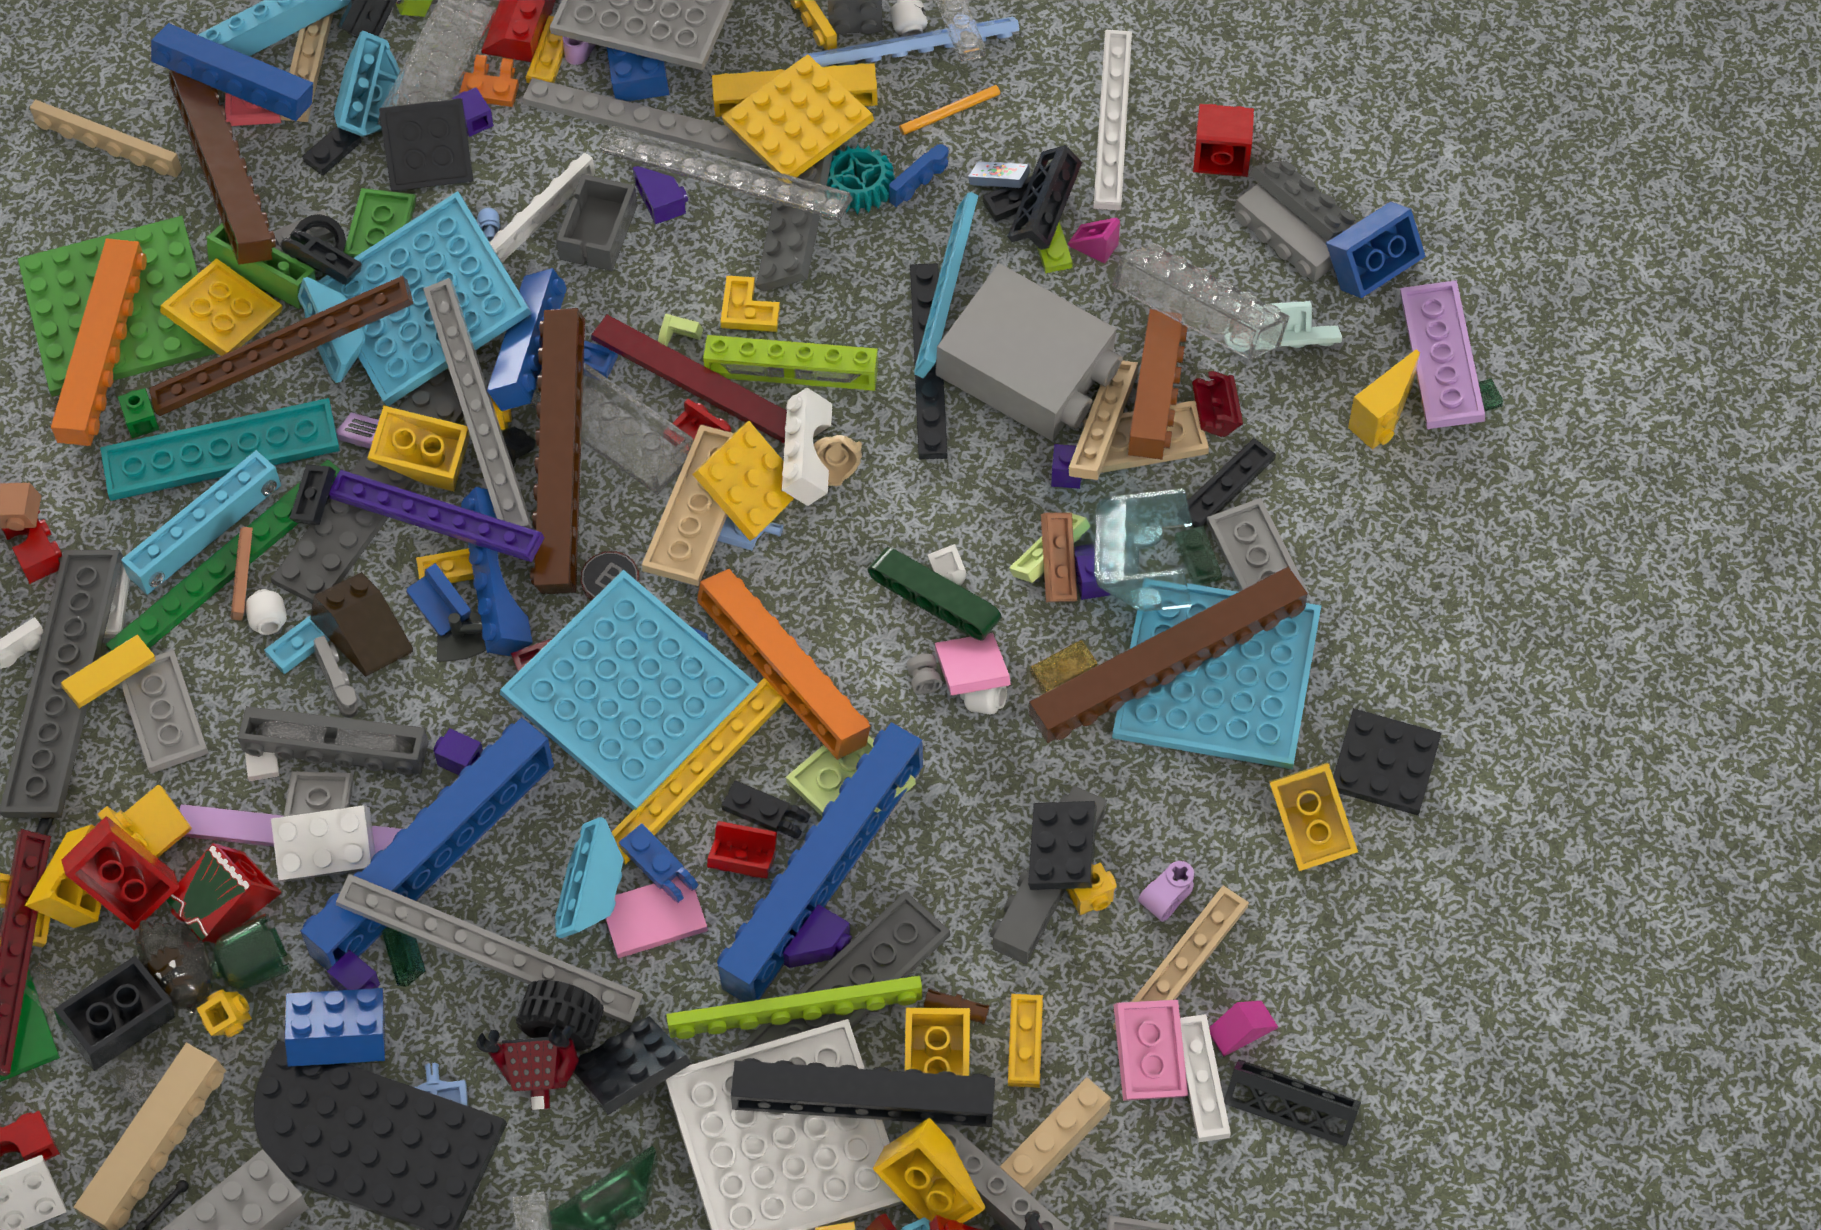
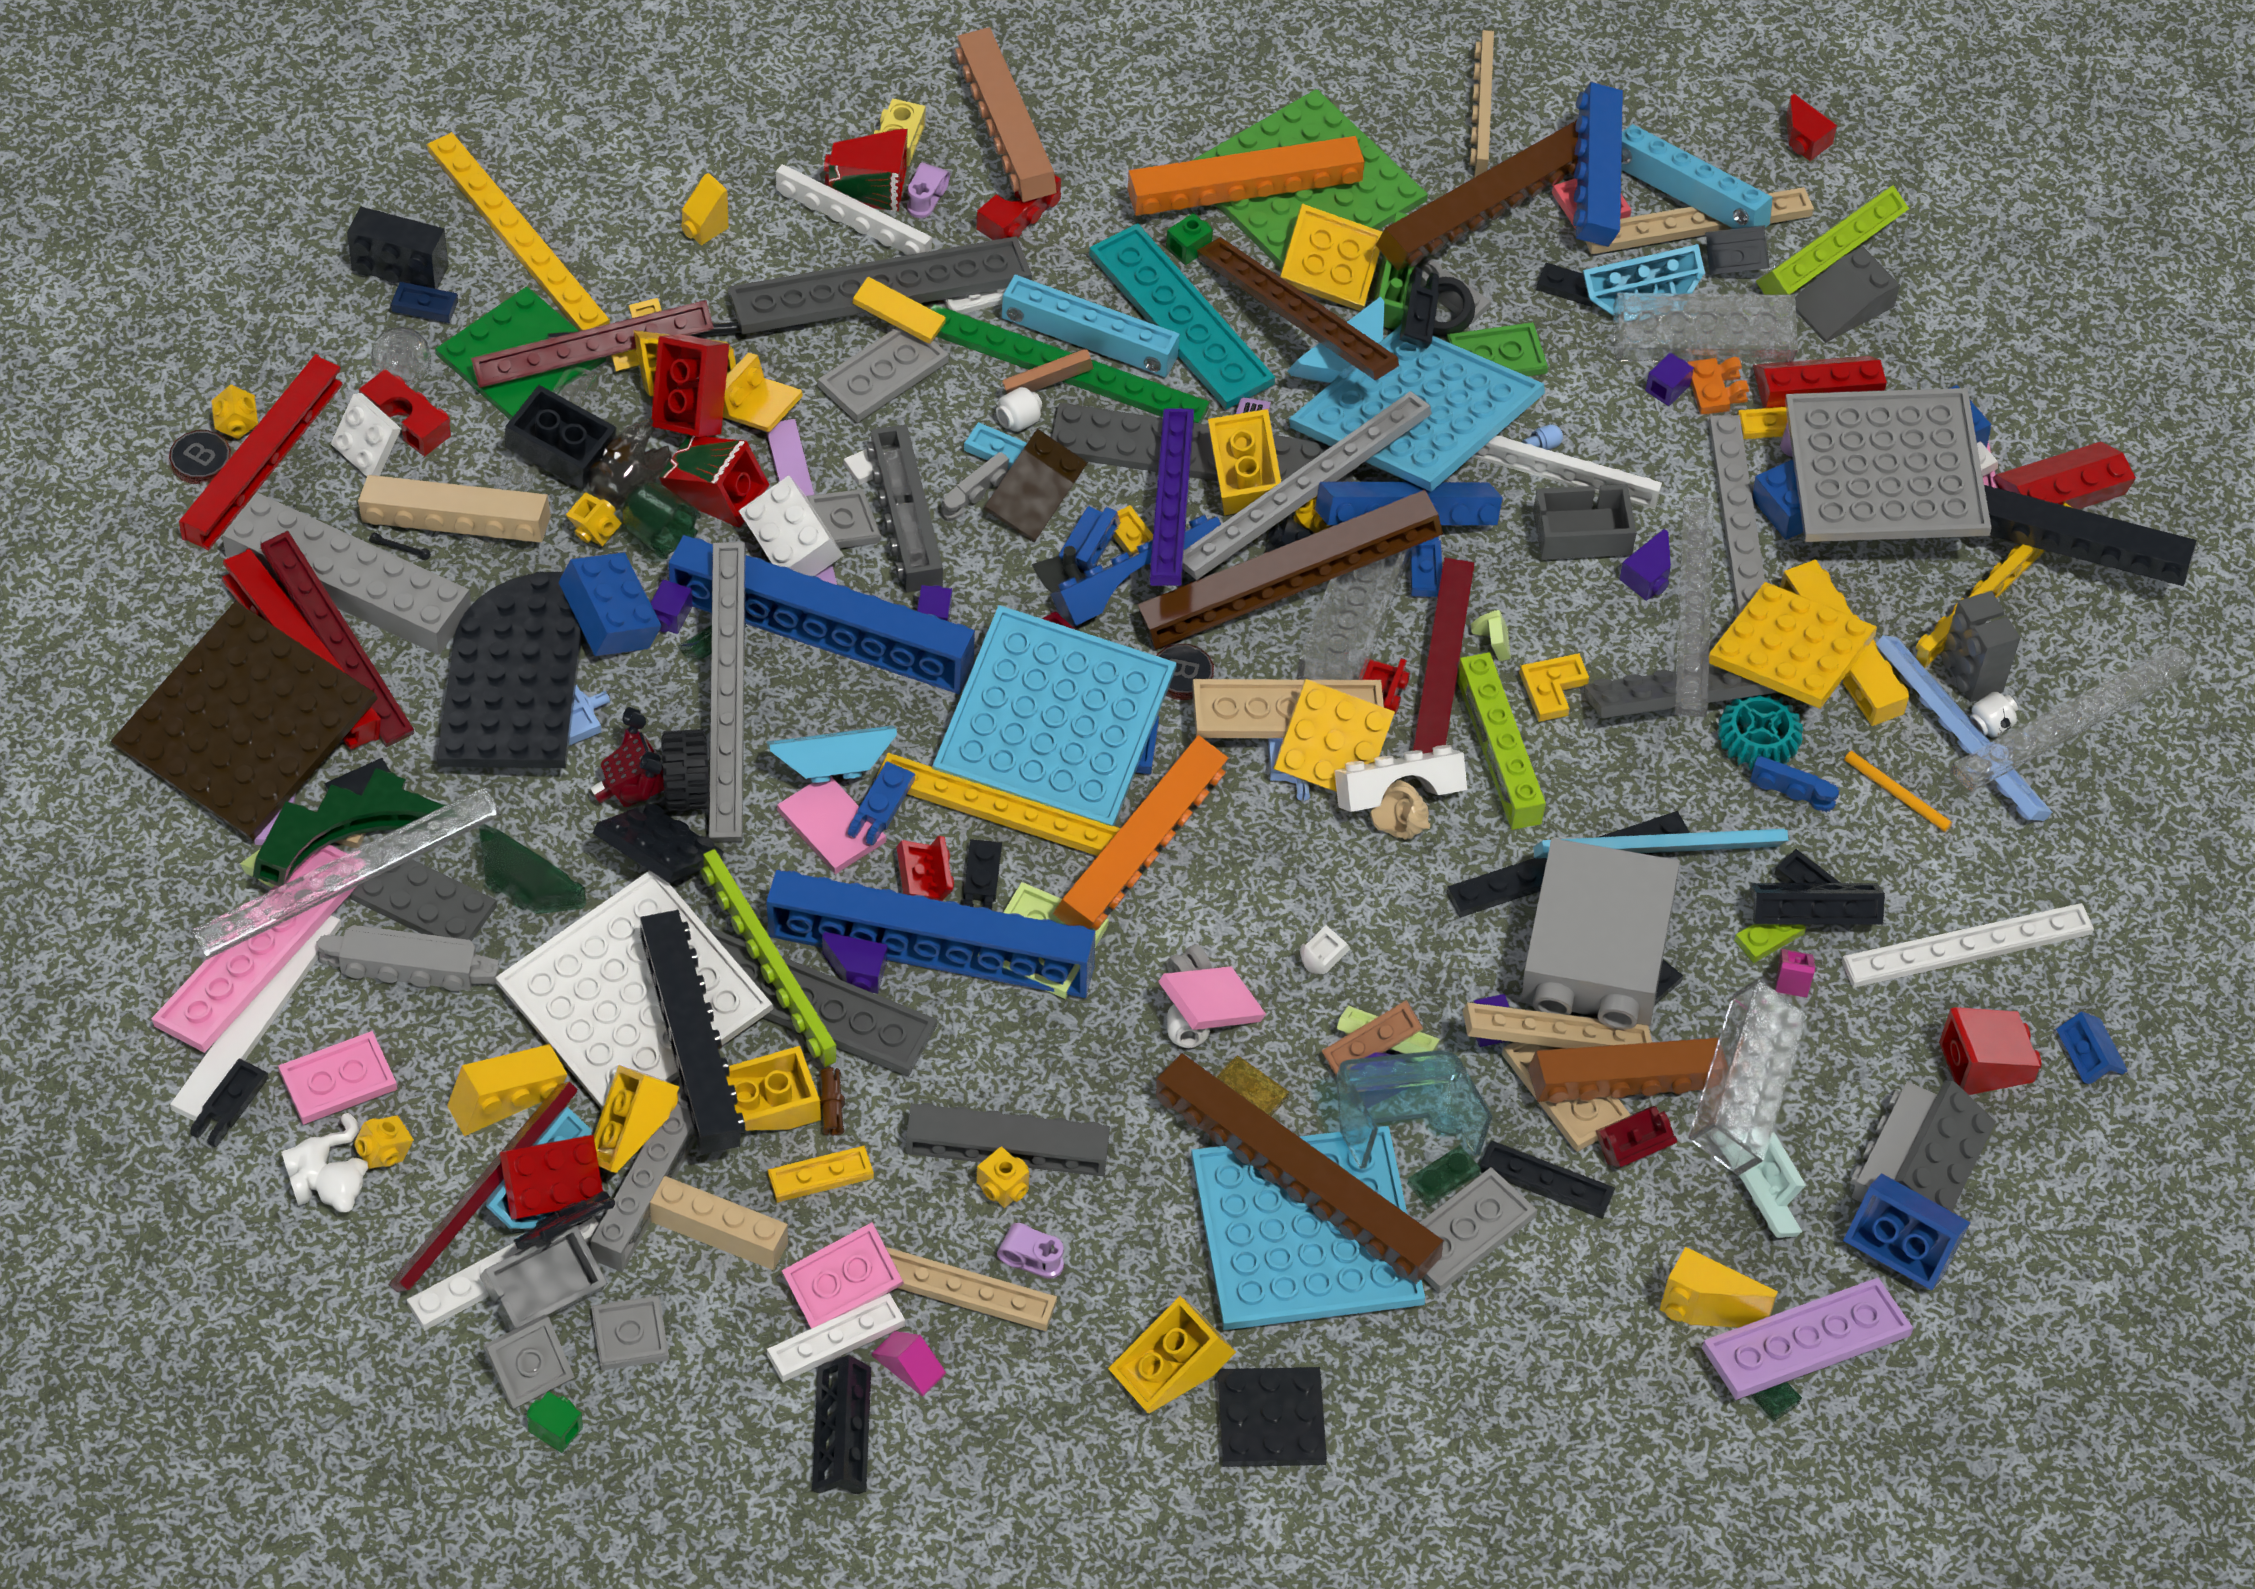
camera: 65 degrees right, 5 degrees down
(312, 494) = (1156, 397): black plate -> none
(426, 144) = (1600, 349): black plate -> none
(934, 593) = (1283, 945): dark green beam -> none
(999, 174) = (1831, 855): sand blue tile -> none
(1062, 845) = (1032, 1130): black plate -> none
(1240, 75) = (2090, 1047): none -> blue panel

